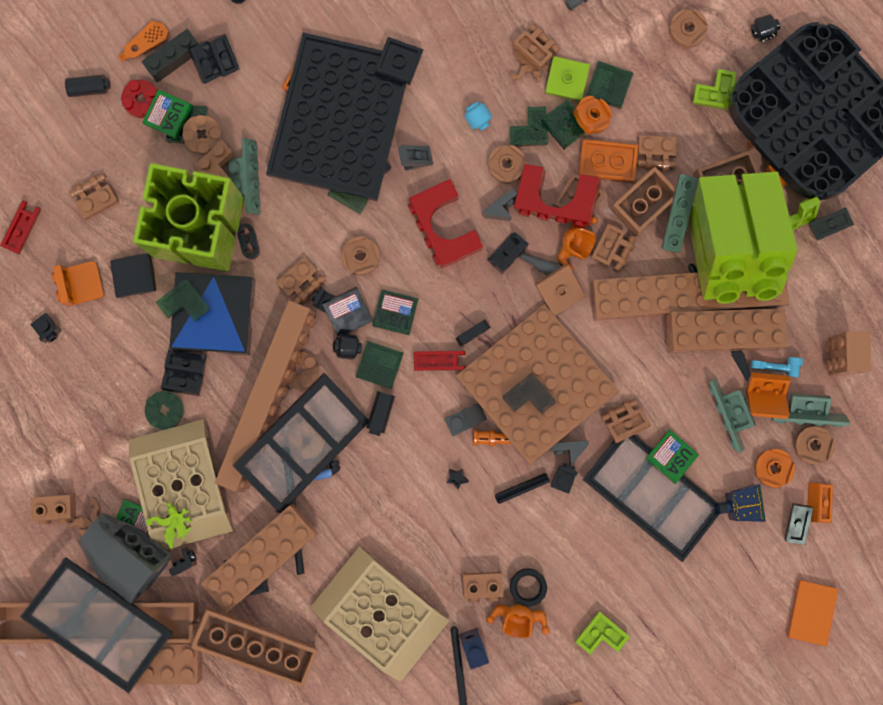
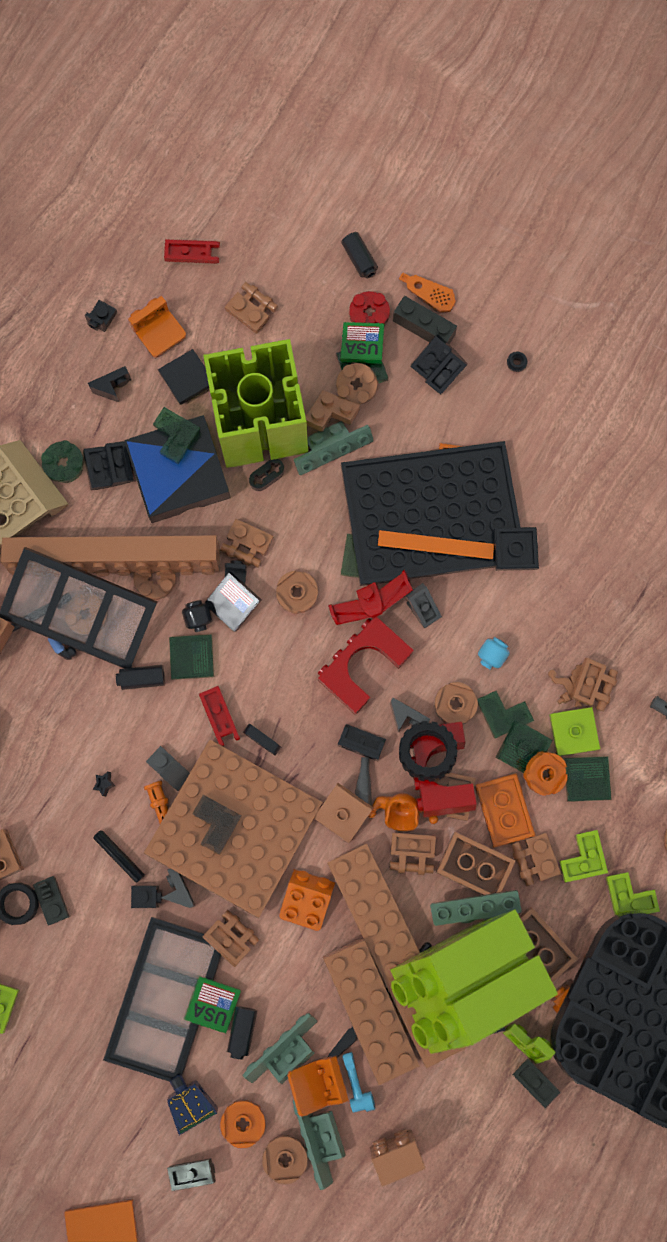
camera: 70 degrees right, 5 degrees down
(111, 347) = (104, 385): none -> black slope
(368, 124) = (435, 544): none -> orange sticker
(395, 196) = (371, 600): none -> red plate
(395, 312) = (252, 651): tile -> none
(526, 185) = (428, 729): none -> black tyre
(536, 557) = (51, 900): none -> pearl dark grey plate
(618, 347) = (306, 900): none -> orange bracket
(675, 109) = (589, 863): none -> lime plate
(703, 441) = (241, 1032): none -> black brick
(820, 499) = (225, 1191): orange slope -> none

